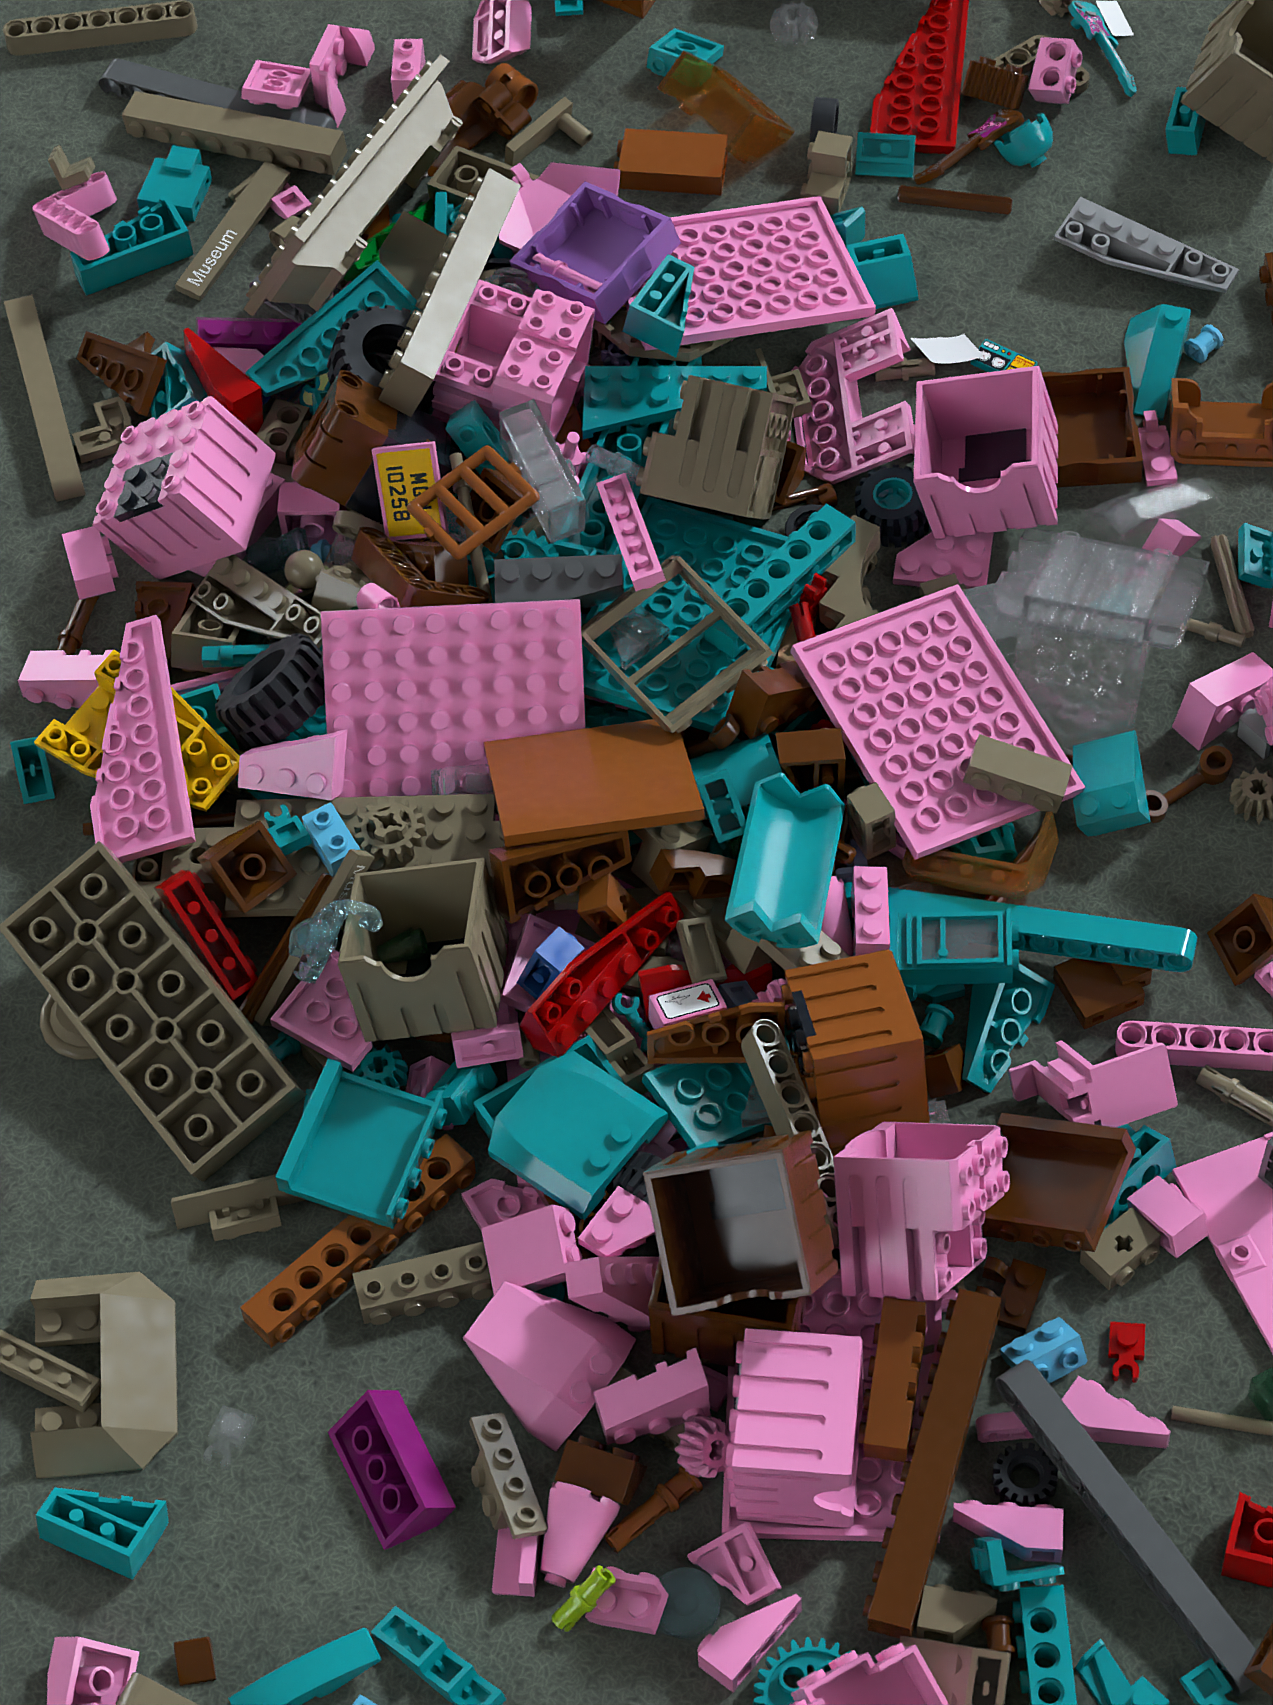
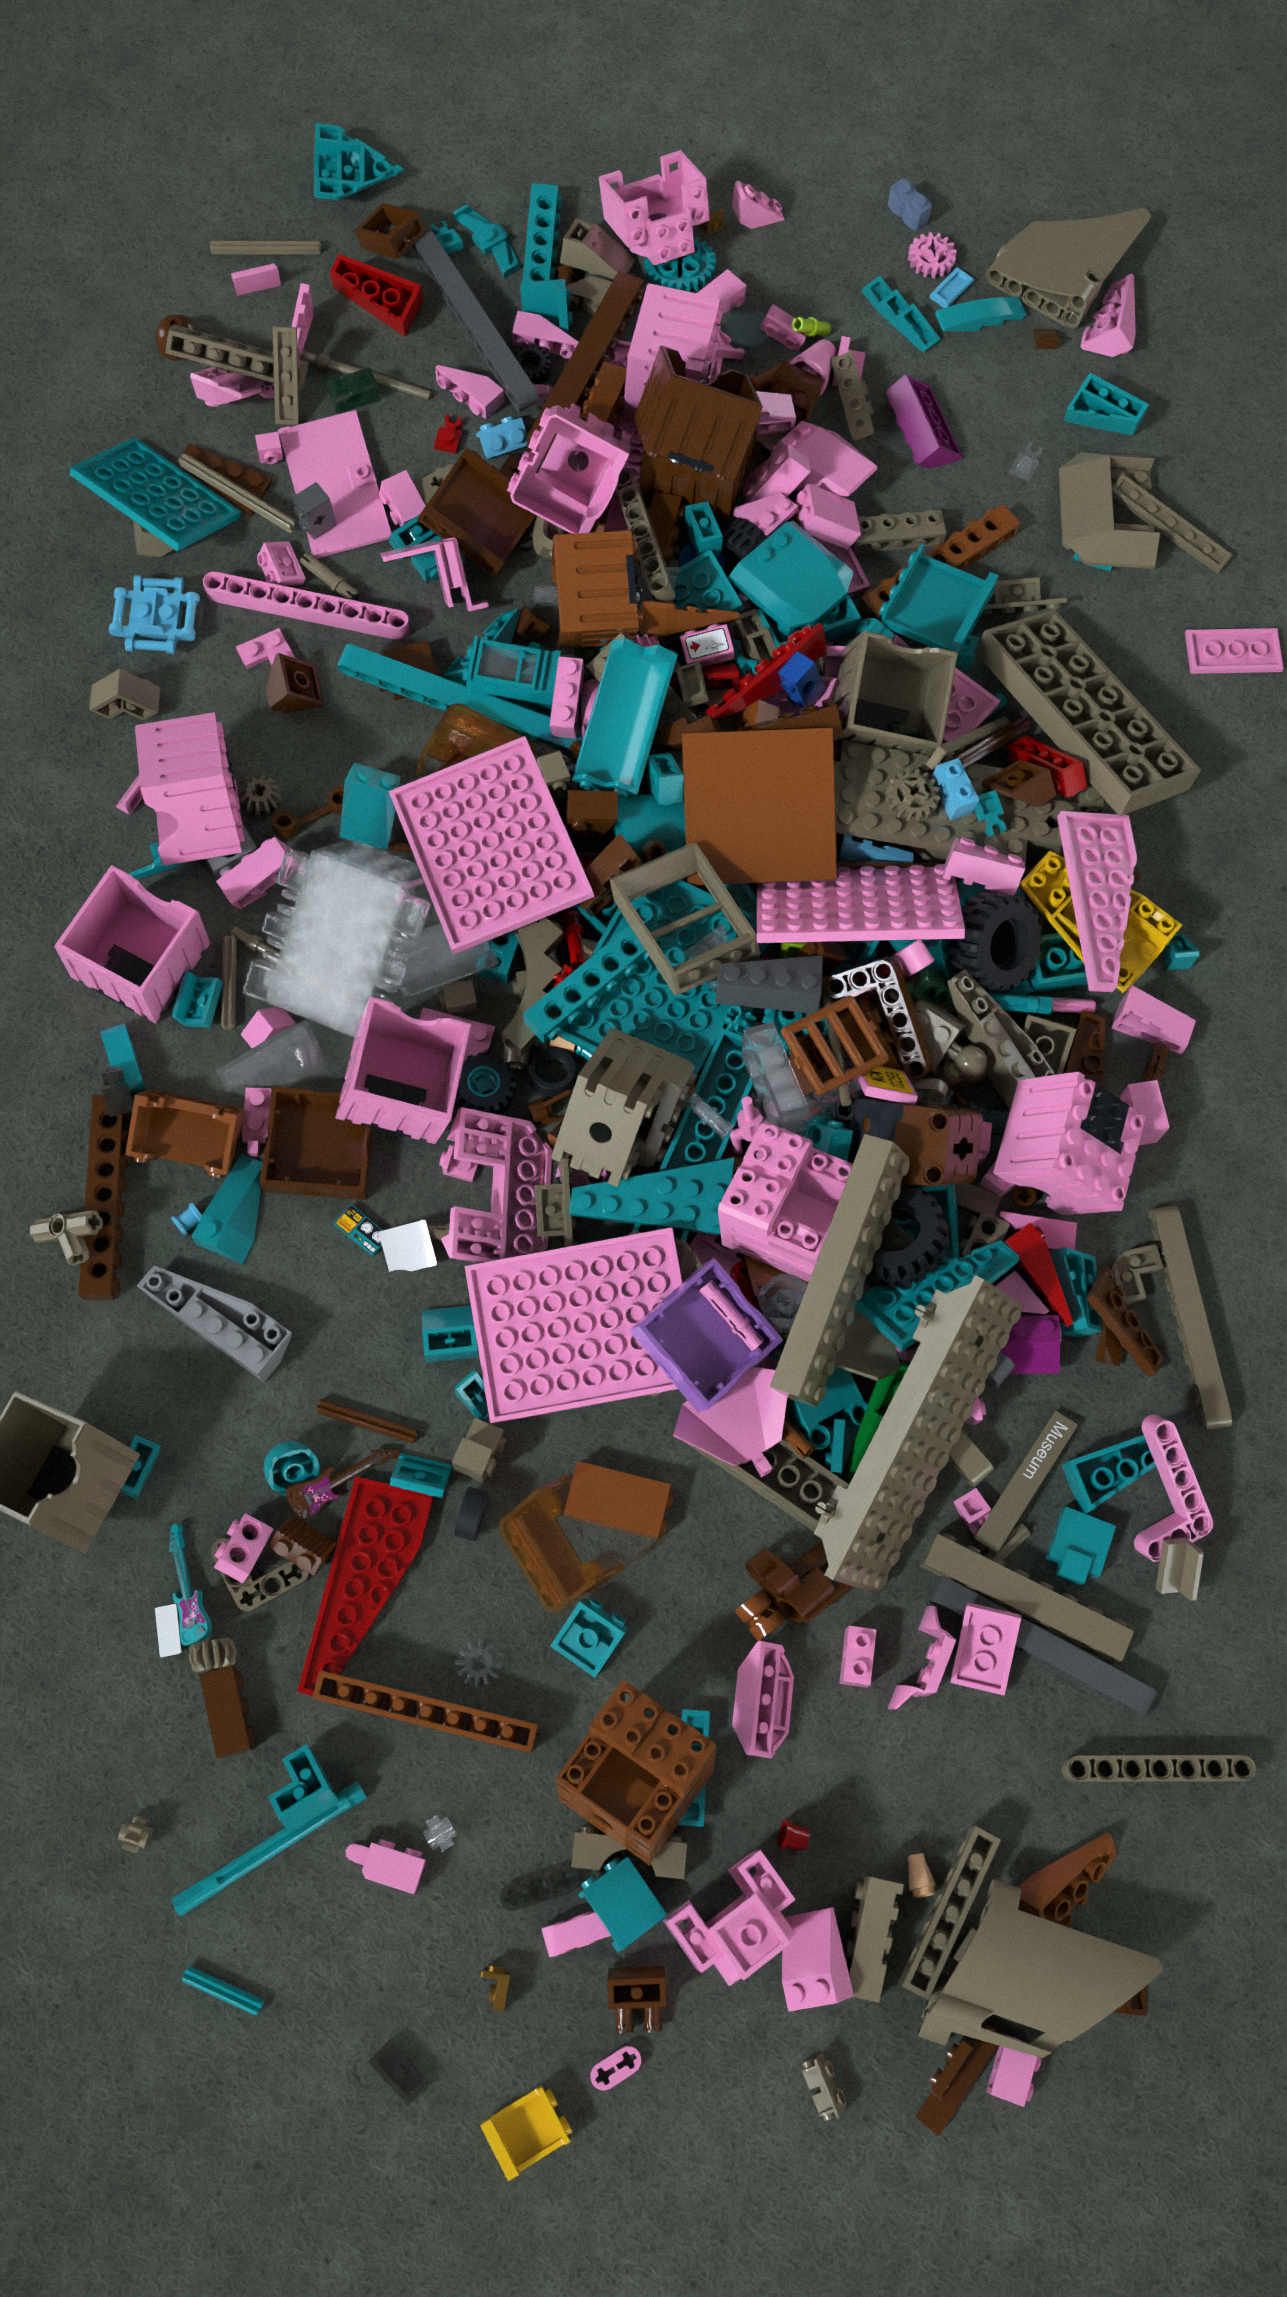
camera: 175 degrees right, 15 degrees up
(319, 934) = (967, 705): clear light blue animal -> none
(461, 780) = (856, 864): clear slope -> none
(555, 118) = (719, 1573): dark tan piece -> none
(631, 532) = (707, 1019): bright pink plate -> none
(662, 306) = (654, 1247): teal wedge -> none
(1017, 774) = (439, 785): dark tan brick -> none

